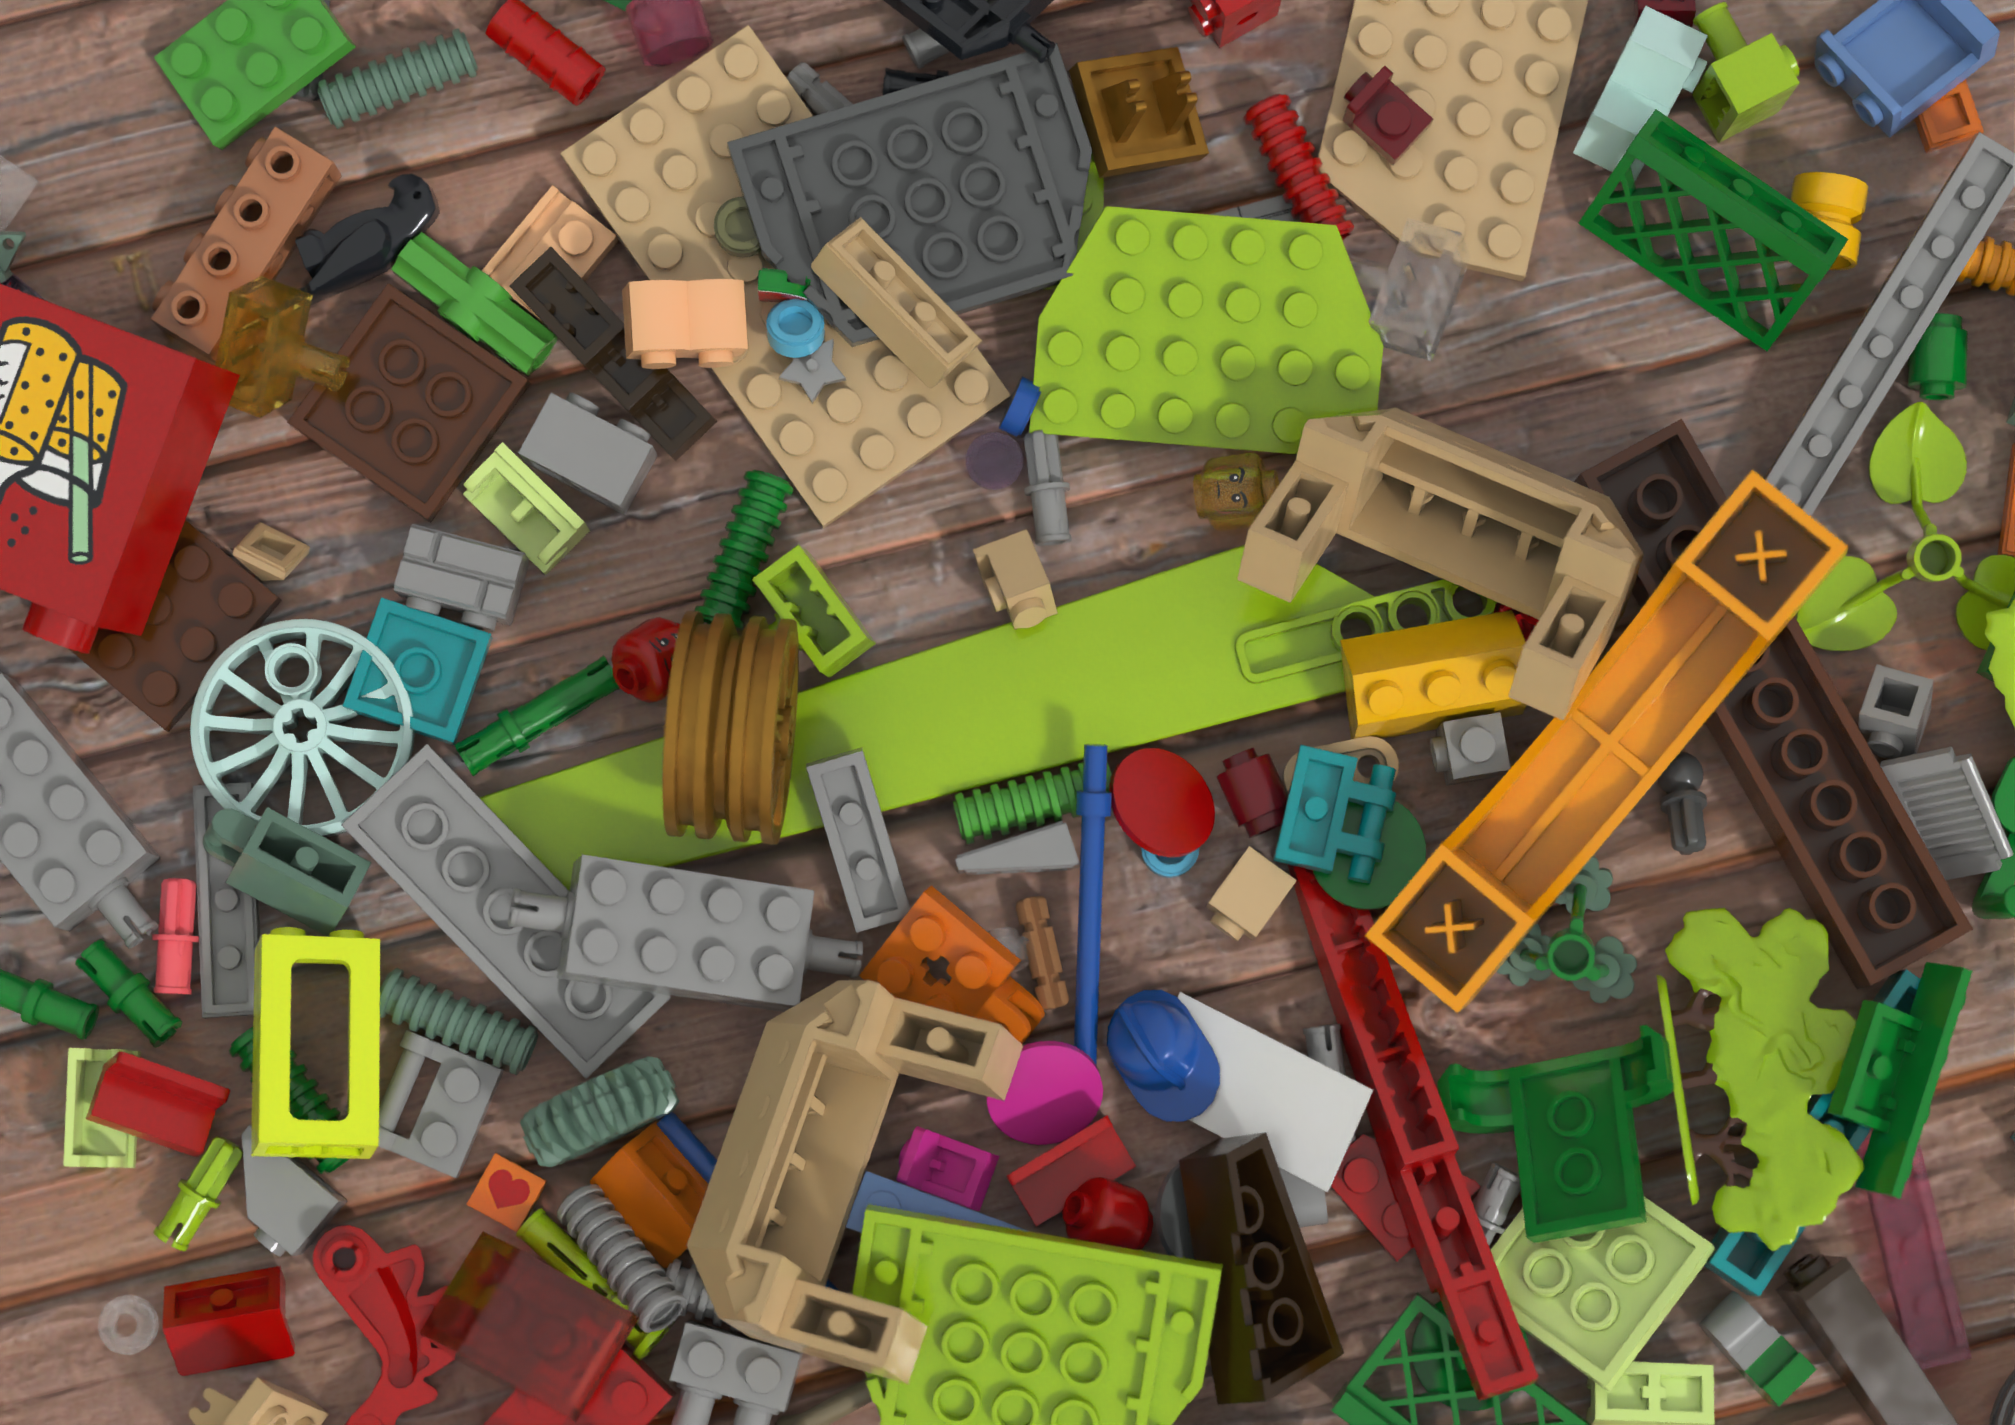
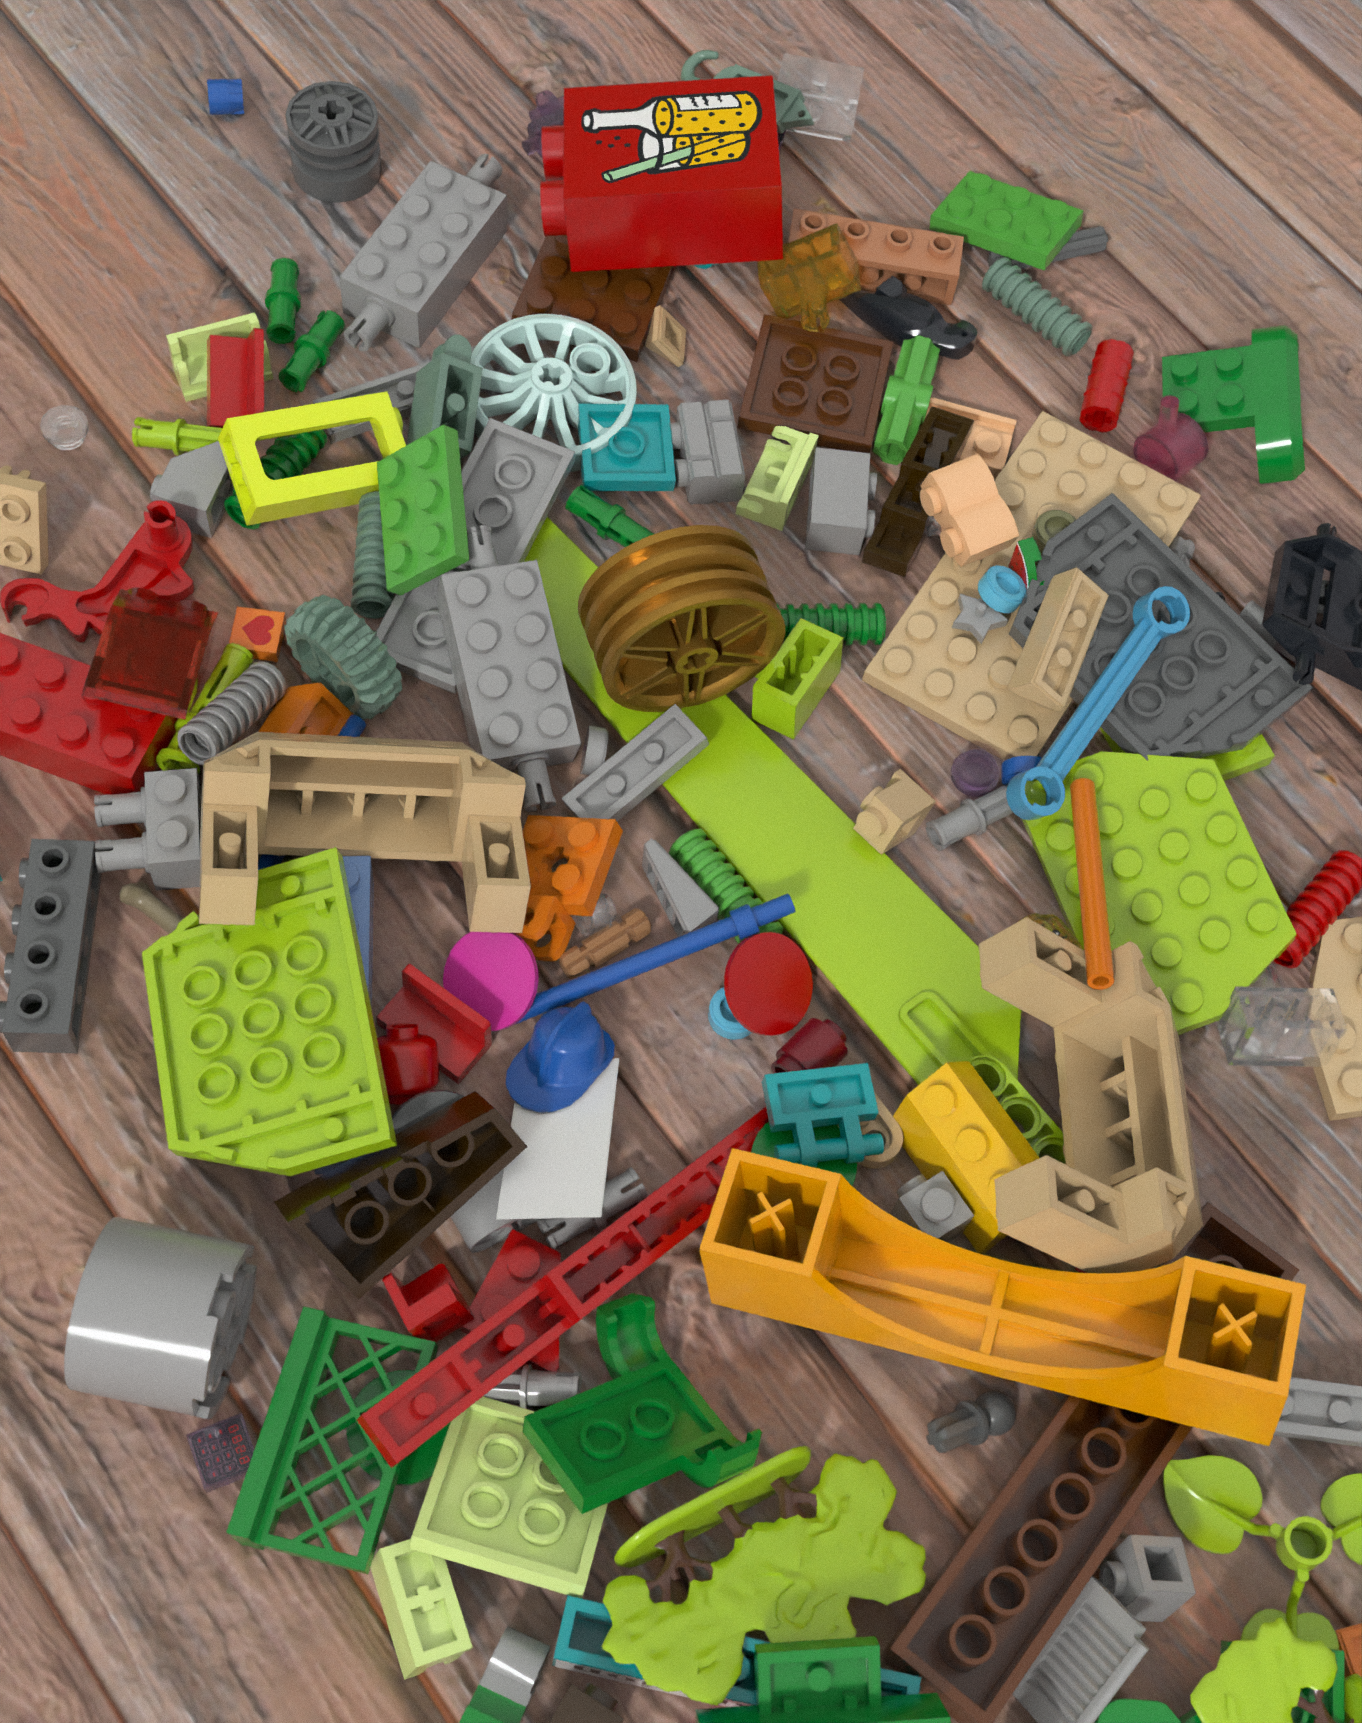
camera: 60 degrees right, 20 degrees down
(175, 937) = (363, 367): coral axle -> none
(227, 1321) = (87, 484): red panel -> none
(451, 1110) = (299, 578): light grey plate -> none
(457, 957) = (422, 510): none -> bright green plate
(810, 873) = (594, 749): none -> light grey tile
(946, 1168) = (398, 926): dark pink bracket -> none
(990, 297) = (1098, 703): none -> dark azure piece
(1139, 111) = (1294, 773): pearl gold plate -> none
(1206, 421) = (1091, 885): none -> orange piece
(1249, 896) = (723, 1081): tan brick -> none
(1366, 1284) = (430, 1303): none -> red panel
(1570, 952) = (796, 1349): sand green plant -> none

